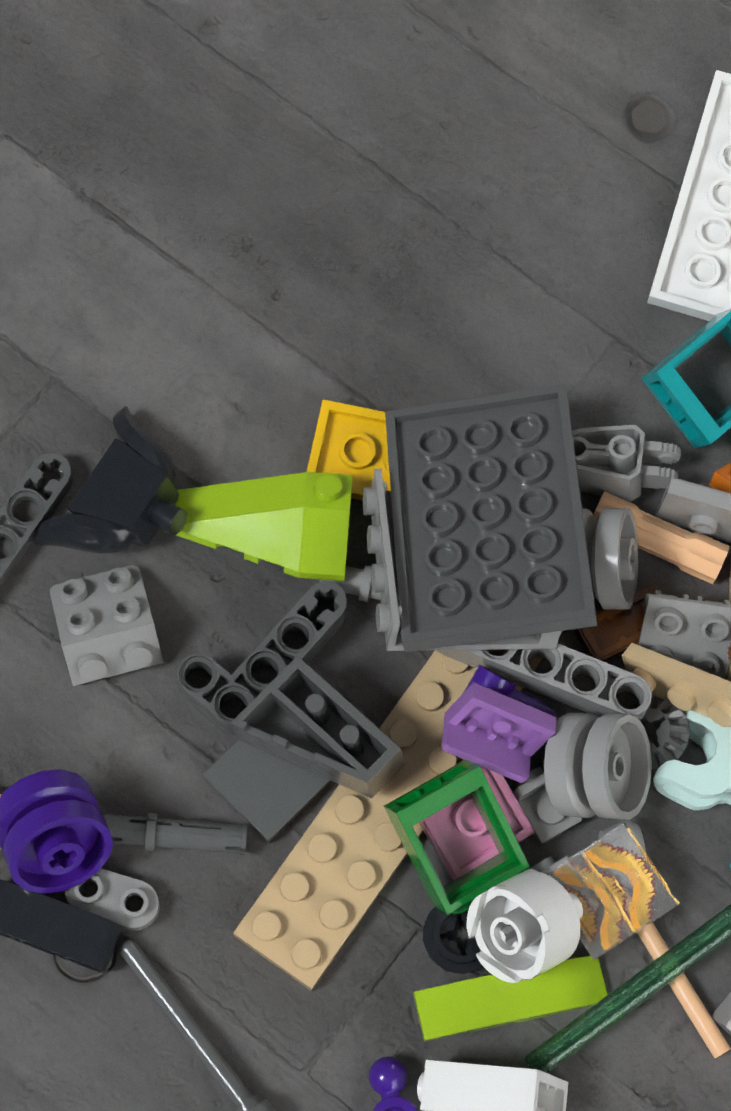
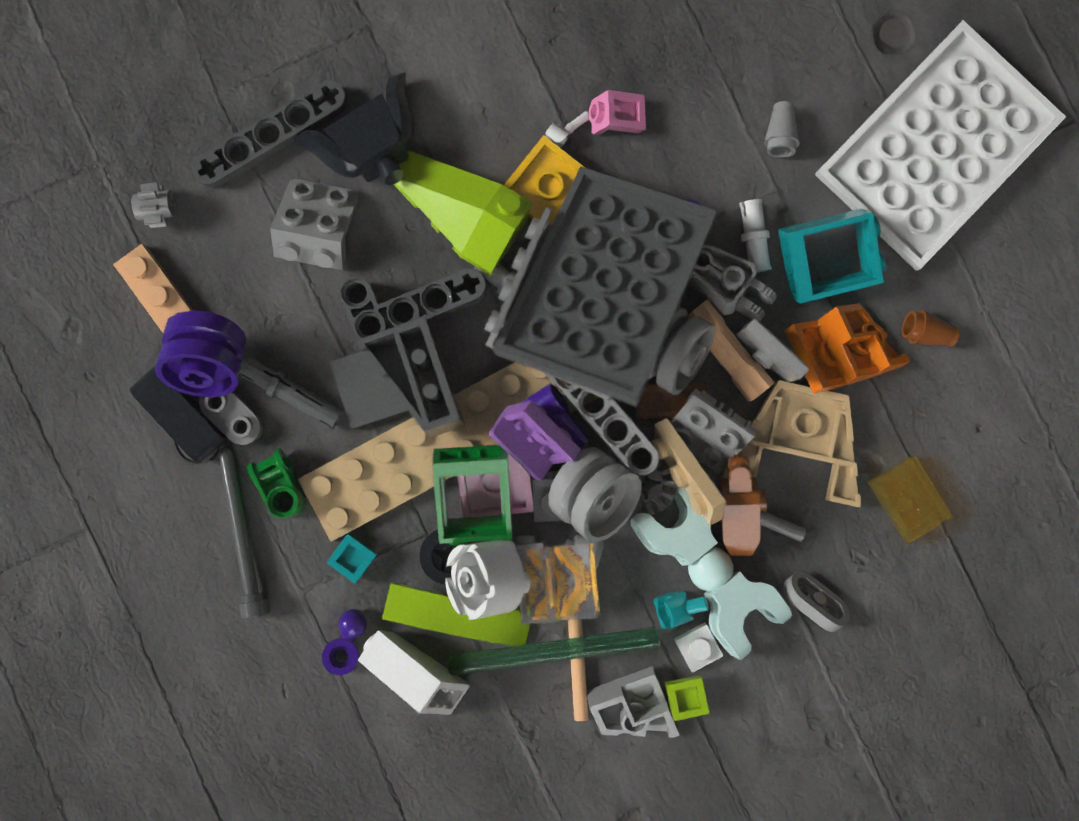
camera: 30 degrees right, 15 degrees up
(205, 946) = (273, 479): none -> green piece
(340, 391) = (560, 135): none -> white hand
(347, 995) = (352, 558): none -> teal plate
(392, 337) = (618, 112): none -> bright pink bracket
(587, 274) = (782, 131): none -> light grey cone
(617, 395) = (755, 234): none -> white pin

